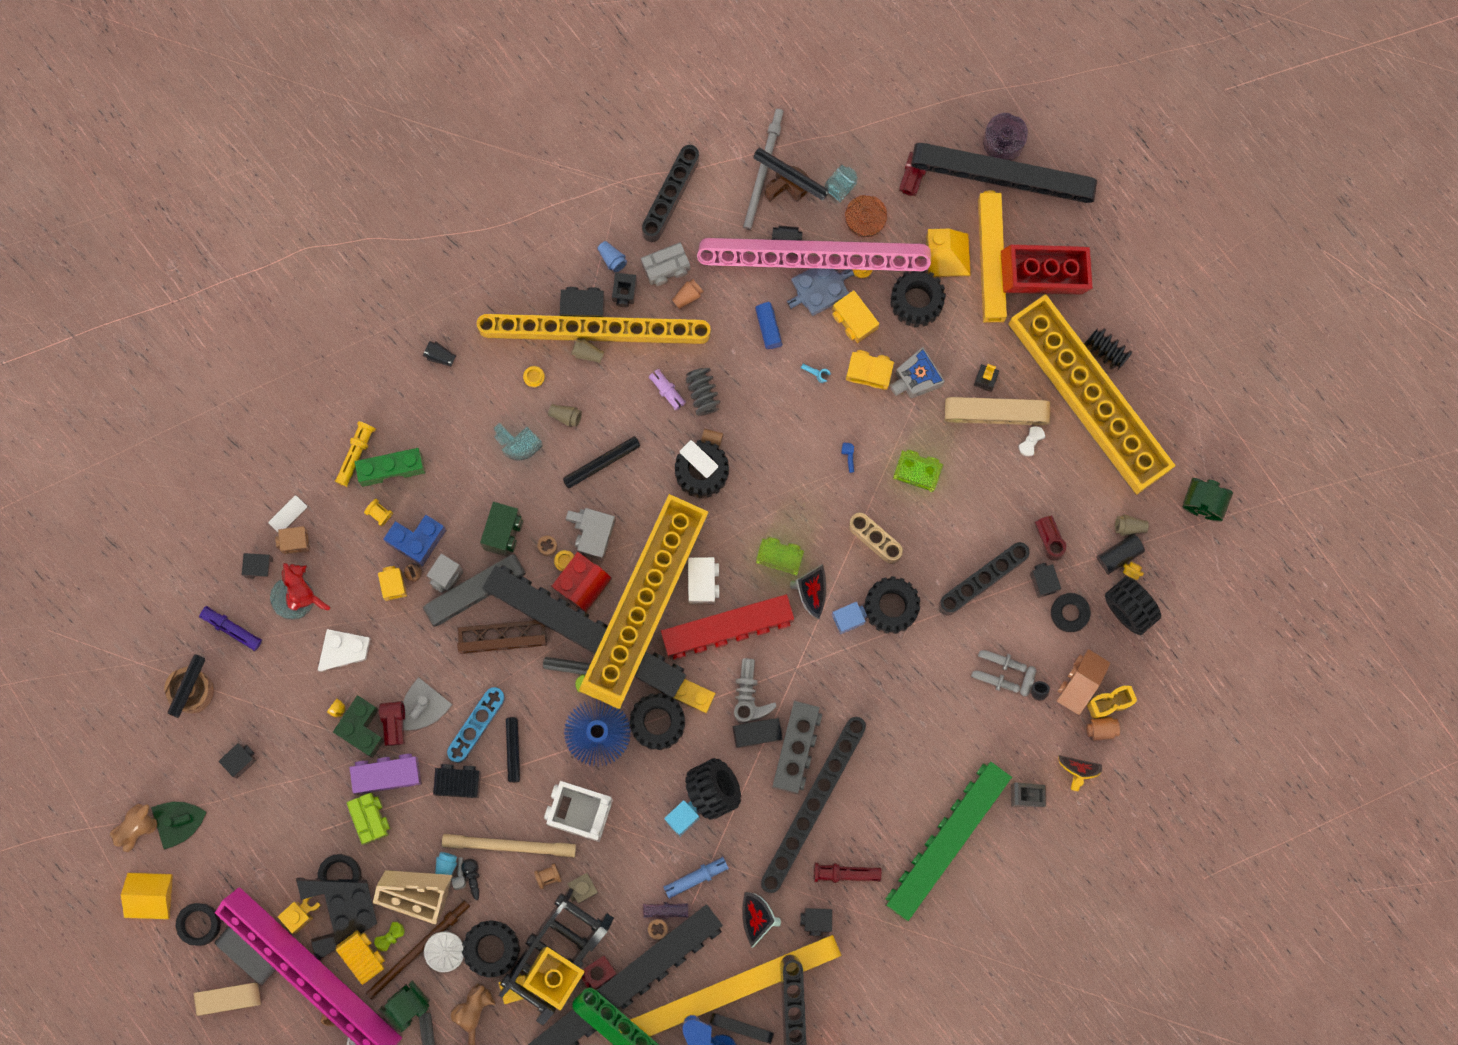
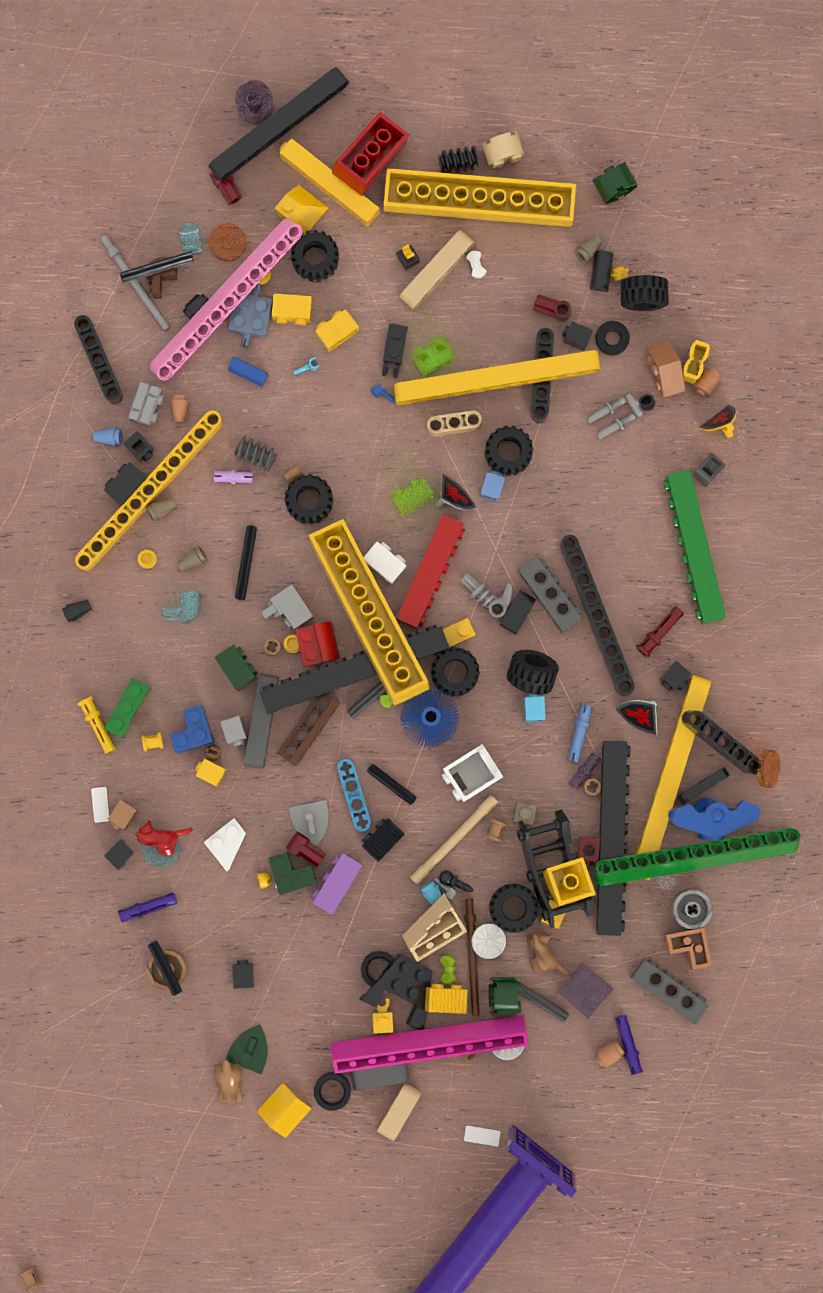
camera: 50 degrees left, 5 degrees up
(368, 818) = (357, 919): lime brick -> none
(698, 459) = (302, 495): white sticker -> none
(897, 432) = (394, 348): none -> black hinge
(917, 376) = (367, 301): torso -> none
(947, 541) = (497, 377): none -> yellow beam
(1151, 379) = (503, 149): none -> tan brick

